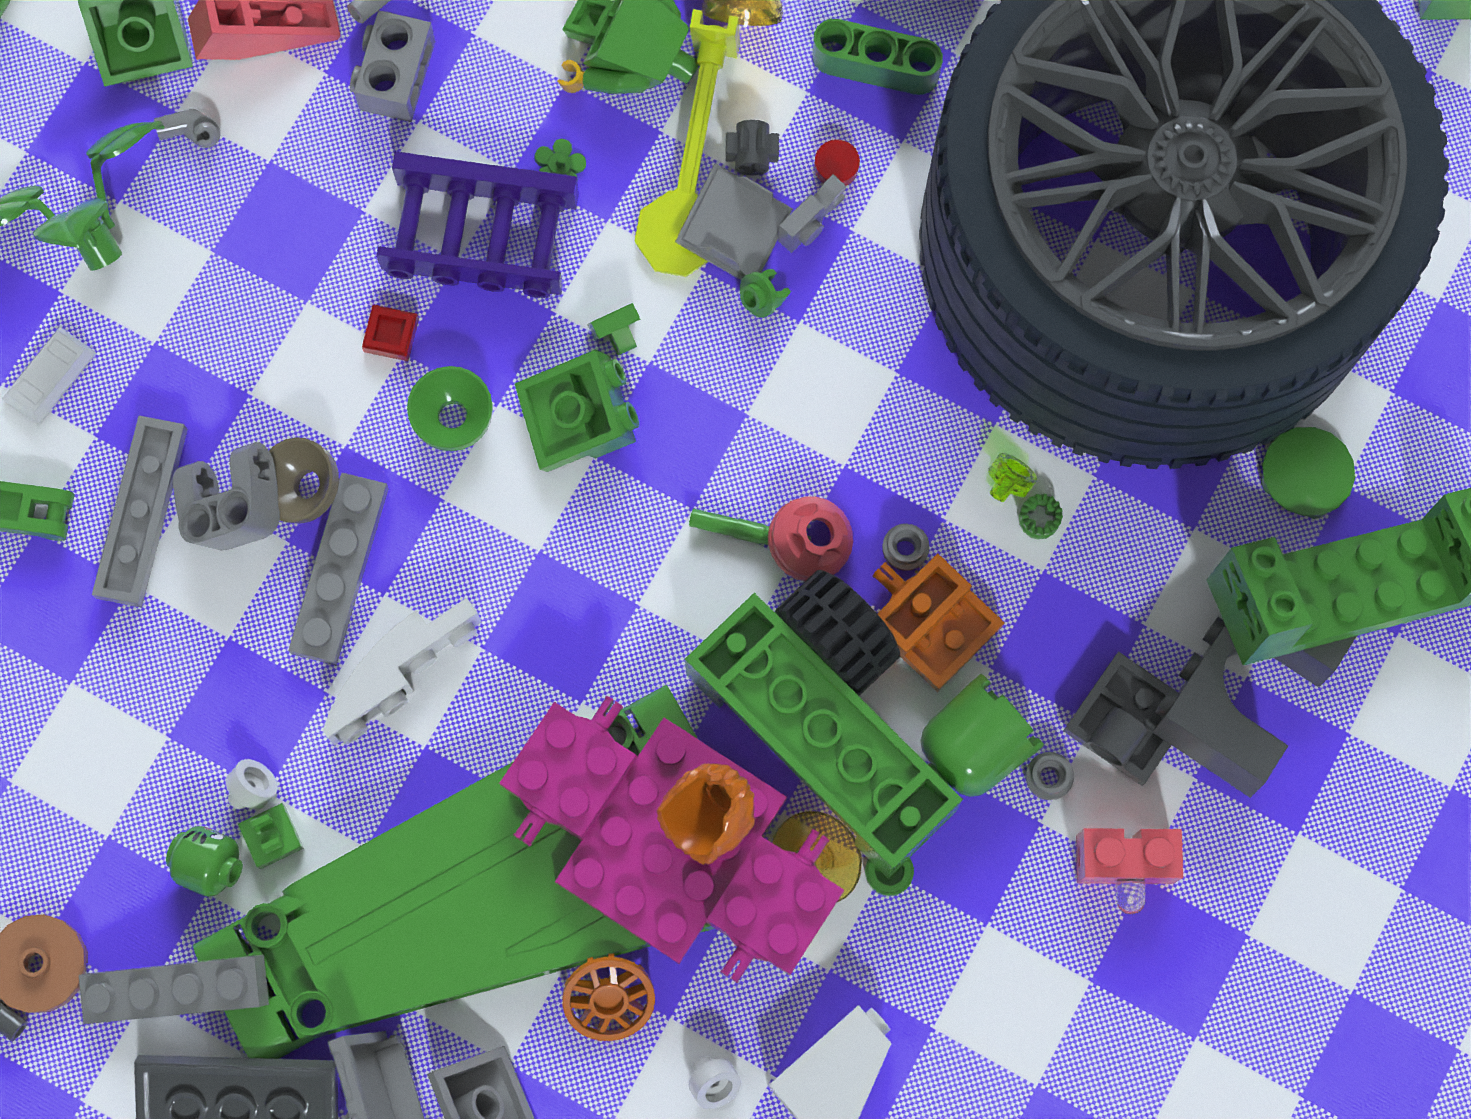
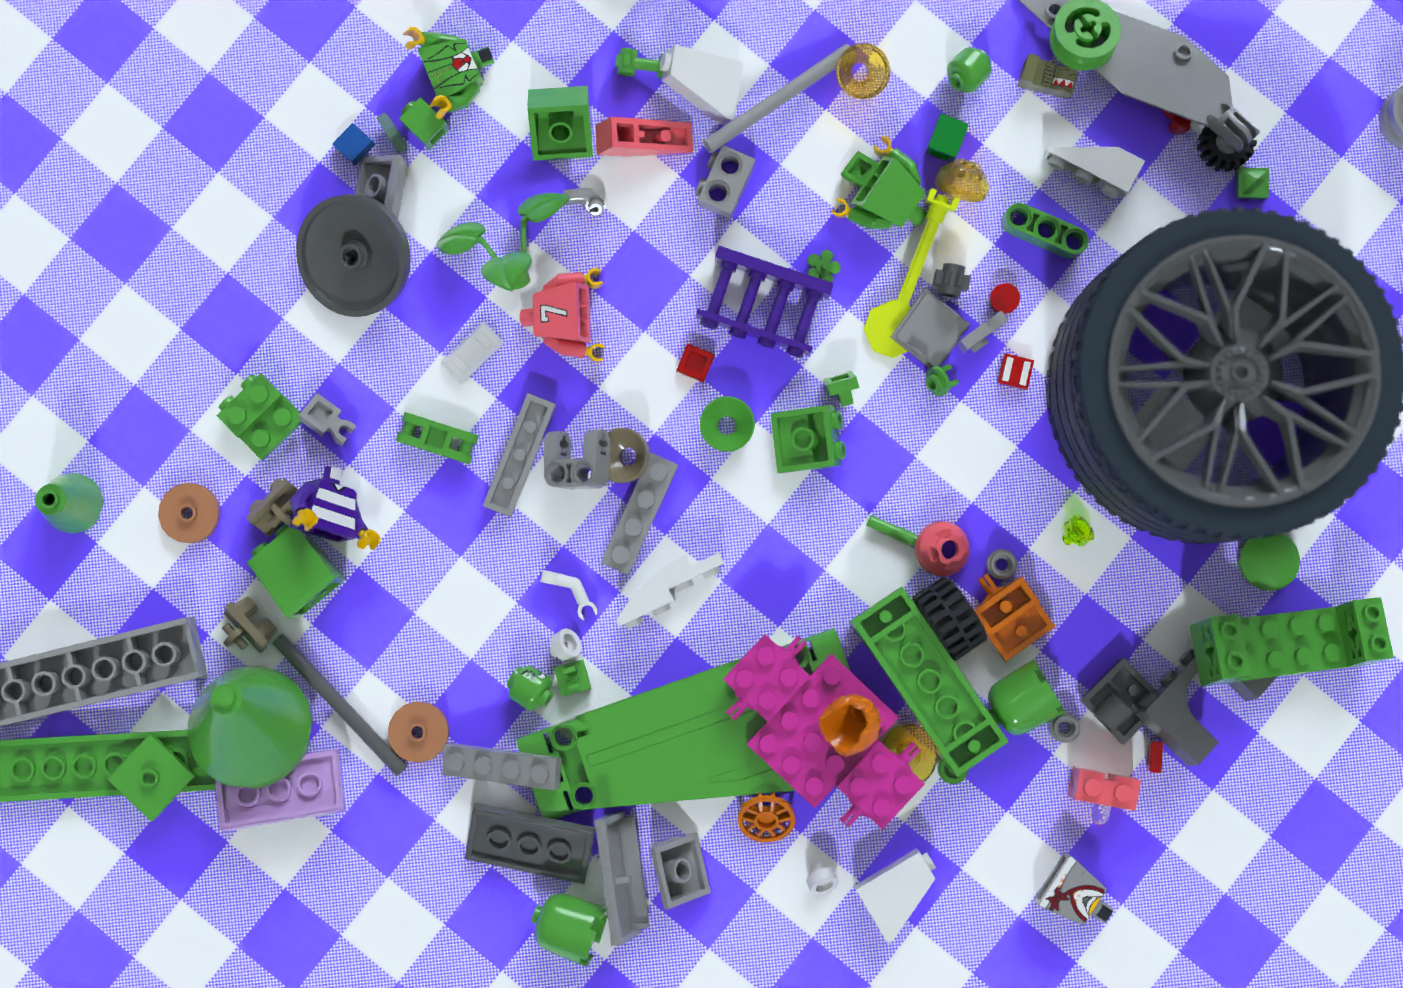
camera: 10 degrees right, 10 degrees up
(177, 291) = (563, 314): none -> coral torso
(220, 688) = (572, 583): none -> white arm
(873, 264) = (1015, 371): none -> tile
(1052, 508) = (1099, 554): bright green bush -> none
(1115, 1029) = (1073, 893): none -> torso
(1197, 793) = (1154, 756): none -> red tile

